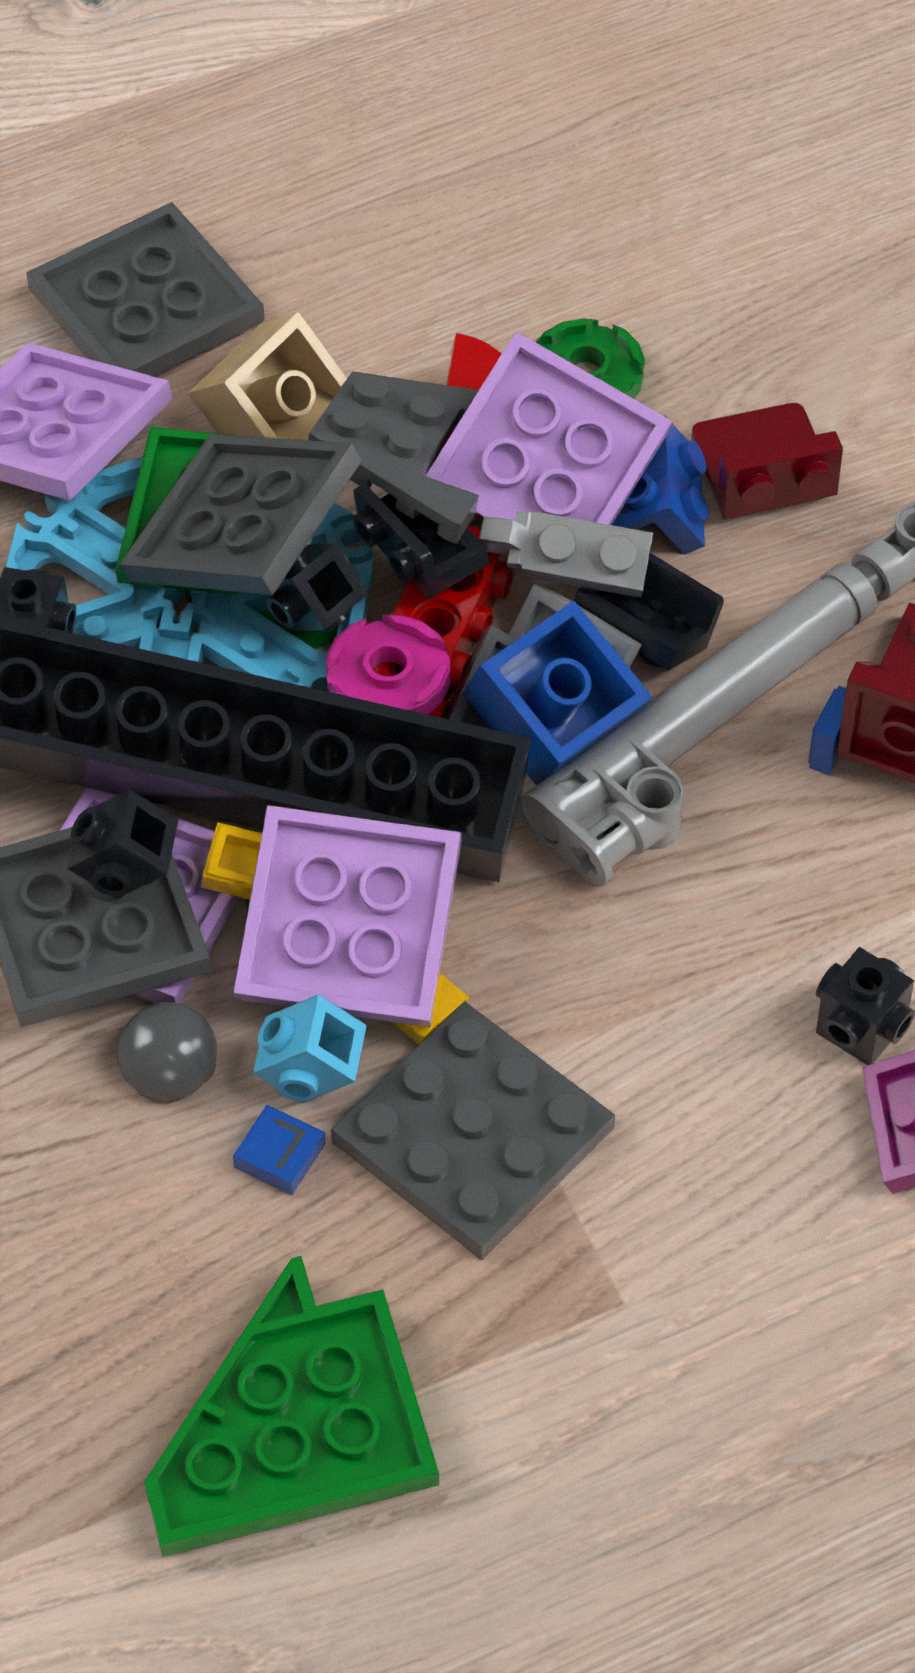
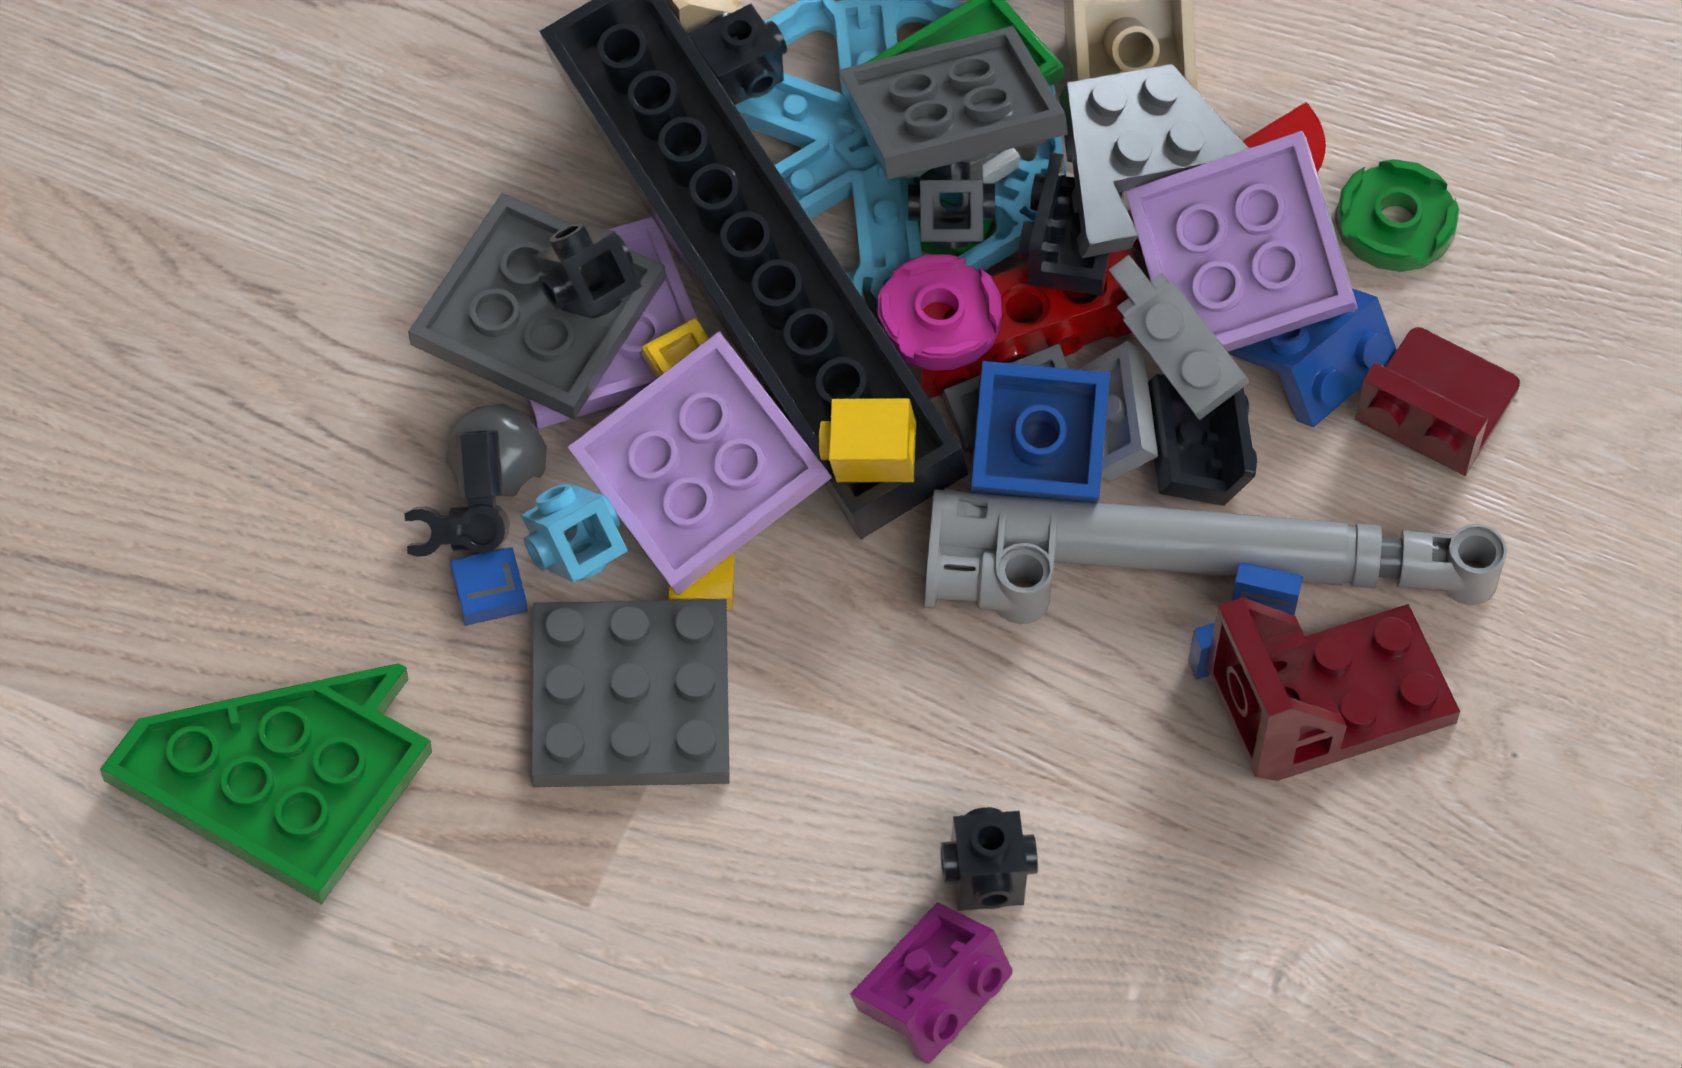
camera: 45 degrees right, 5 degrees up
(224, 1106) = (481, 524): none -> black bar
(472, 782) = (870, 440): none -> yellow brick
(817, 673) = (1268, 587): none -> blue tile

